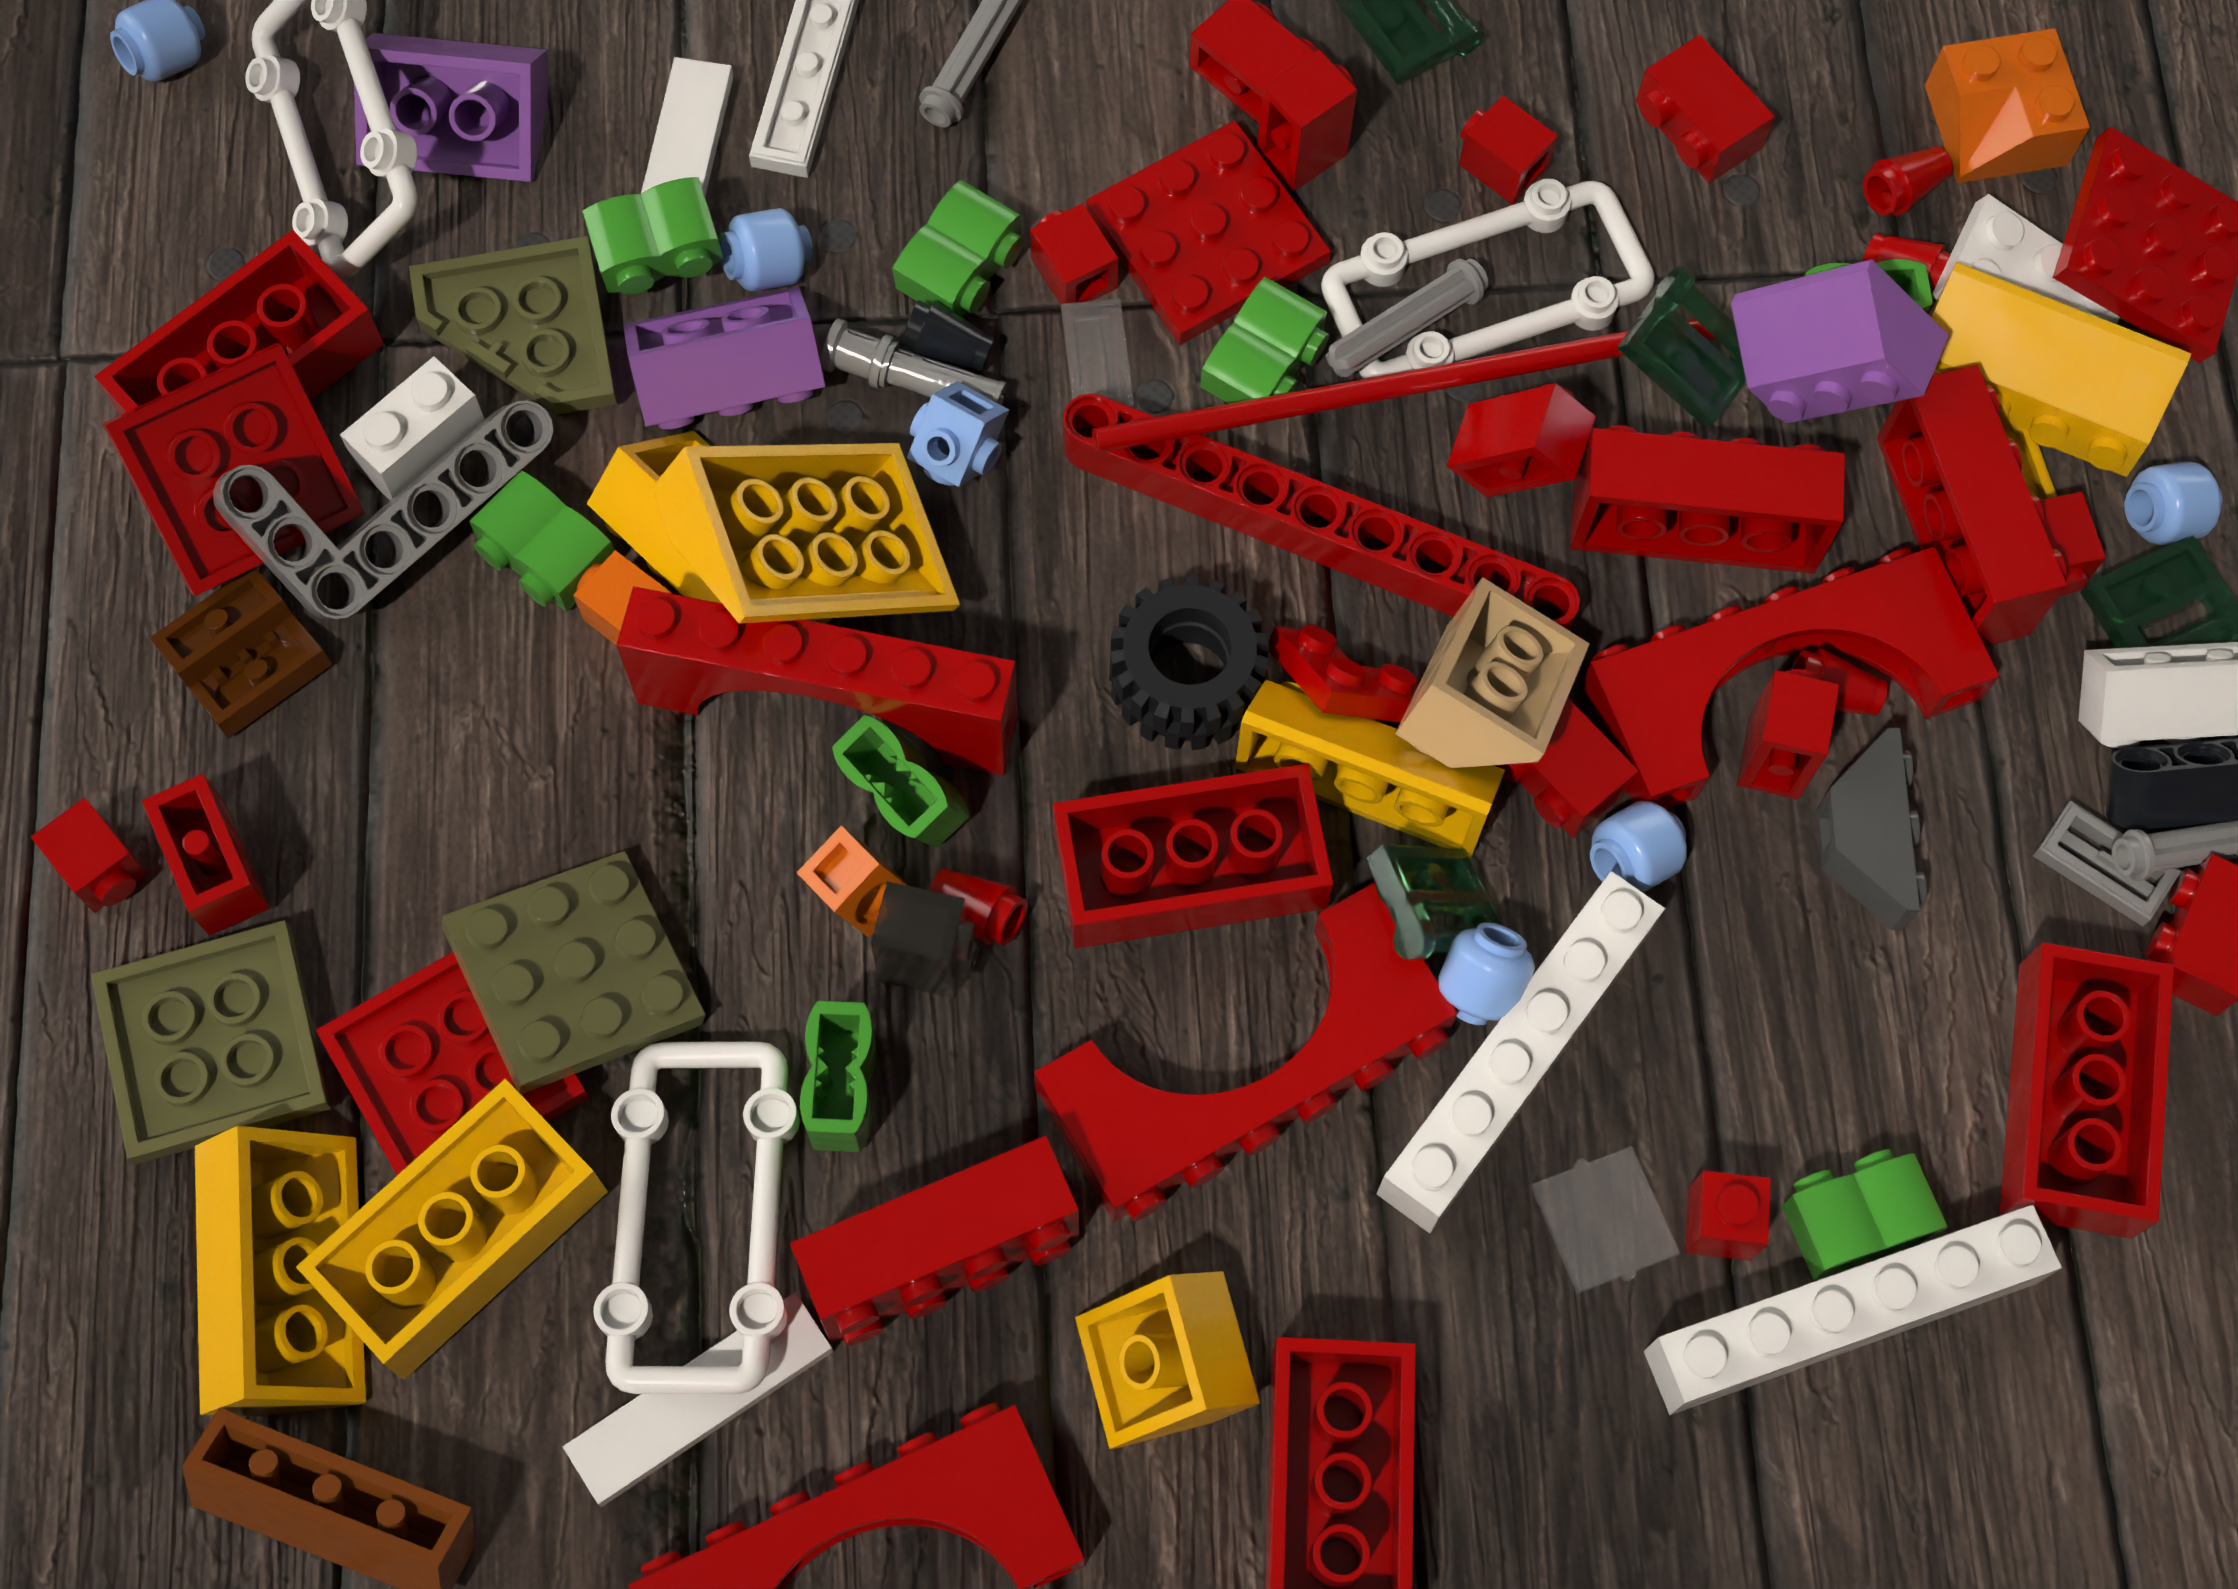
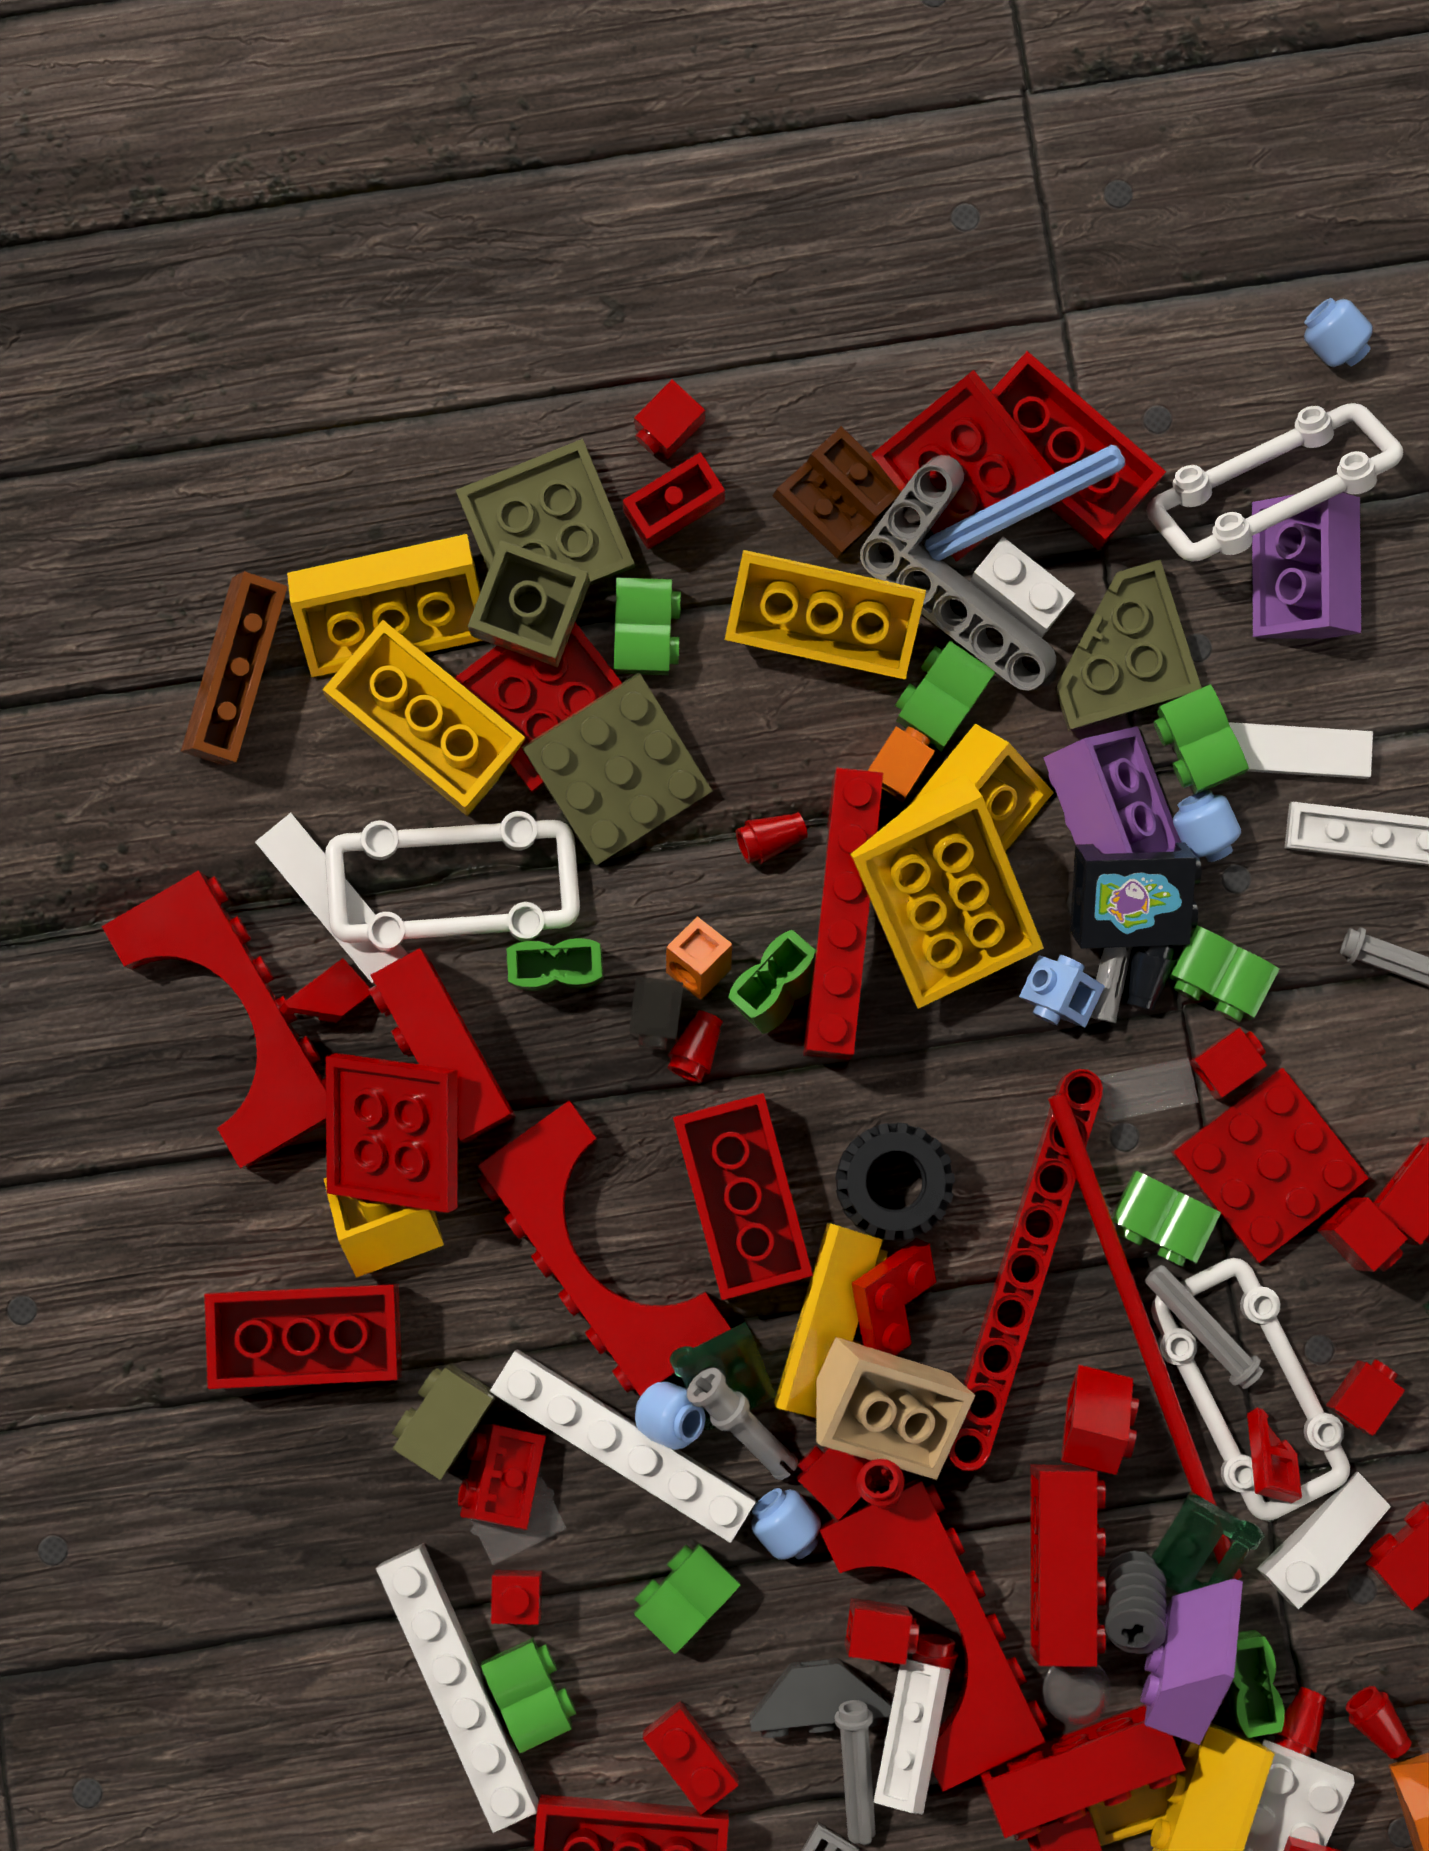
camera: 85 degrees right, 15 degrees up
(298, 385) = (1026, 502): none -> light blue axle
(312, 1053) = (529, 603): none -> olive brick
(375, 916) = (644, 625): none -> bright green brick
(399, 666) = (824, 614): none -> yellow slope
(699, 782) = (770, 836): none -> red cone
(841, 1407) = (330, 994): none -> red tile
(845, 332) = (1134, 897): none -> black panel
(1054, 1313) = (392, 1132): none -> red plate
(1475, 1286) = (444, 1420): none -> olive brick
(1489, 886) = (732, 1413): none -> light grey pin
(1556, 1222) = (501, 1475): none -> red bracket
(1579, 259) = (1273, 1461): none -> red tile
(1589, 684) = (879, 1474): none -> red cone
(1689, 219) = (1324, 1541): none -> white slope
(1733, 988) = (685, 1597): none -> bright green brick
(1775, 409) = (1135, 1603): none -> dark grey piece
(1872, 522) = (1077, 1693): none -> clear piece
(1909, 770) = (853, 1722): none -> light grey axle
(1931, 701) = (912, 1736): none -> white plate
(1951, 999) = (690, 1757): none -> red brick

